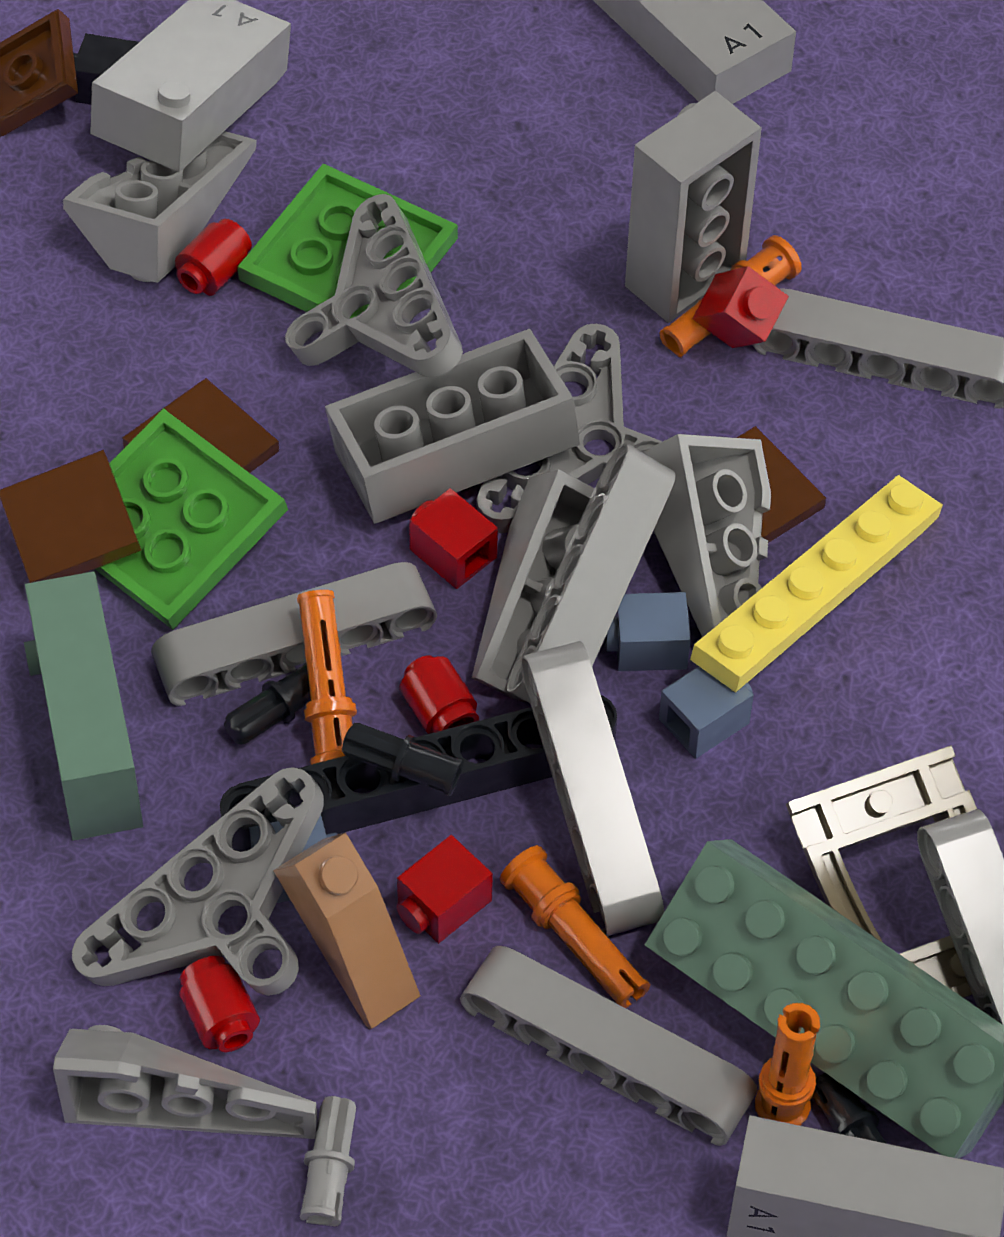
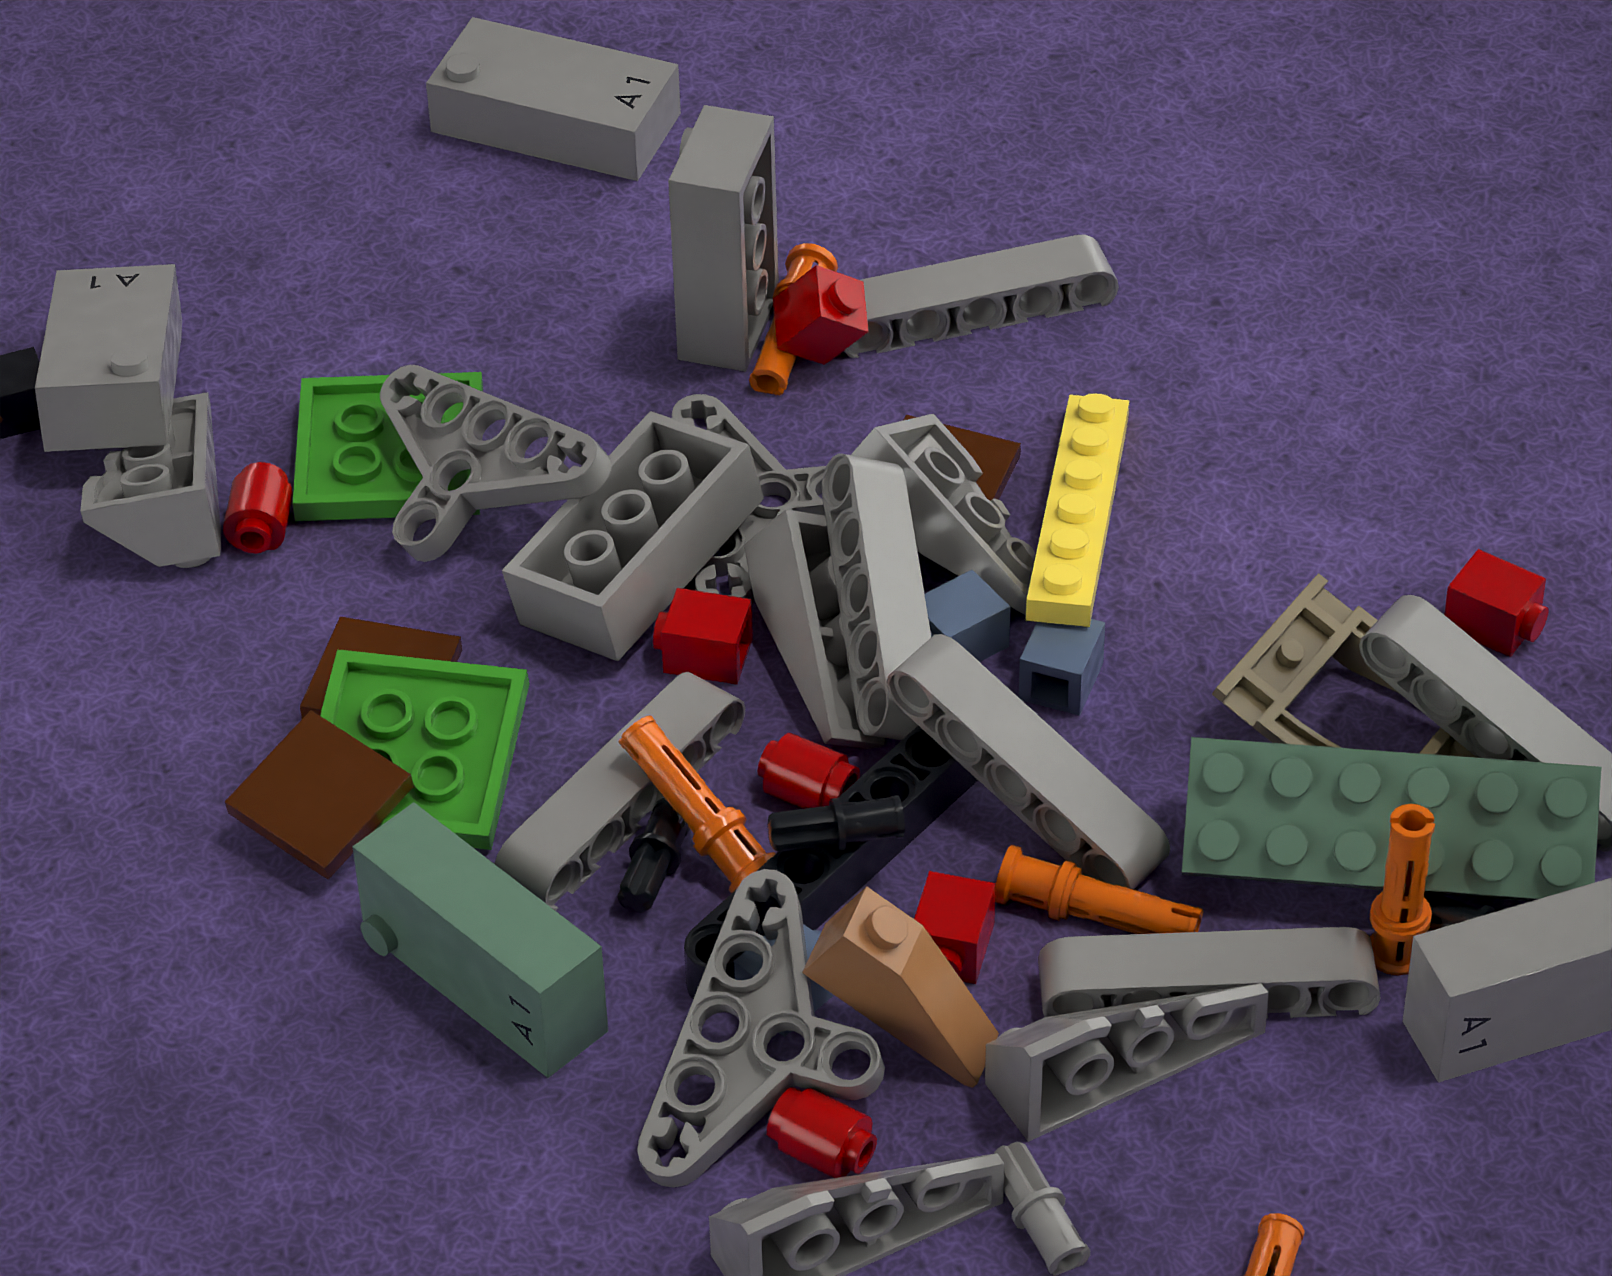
camera: 30 degrees left, 10 degrees down
(454, 1060) = (1098, 1056): none -> light grey wedge

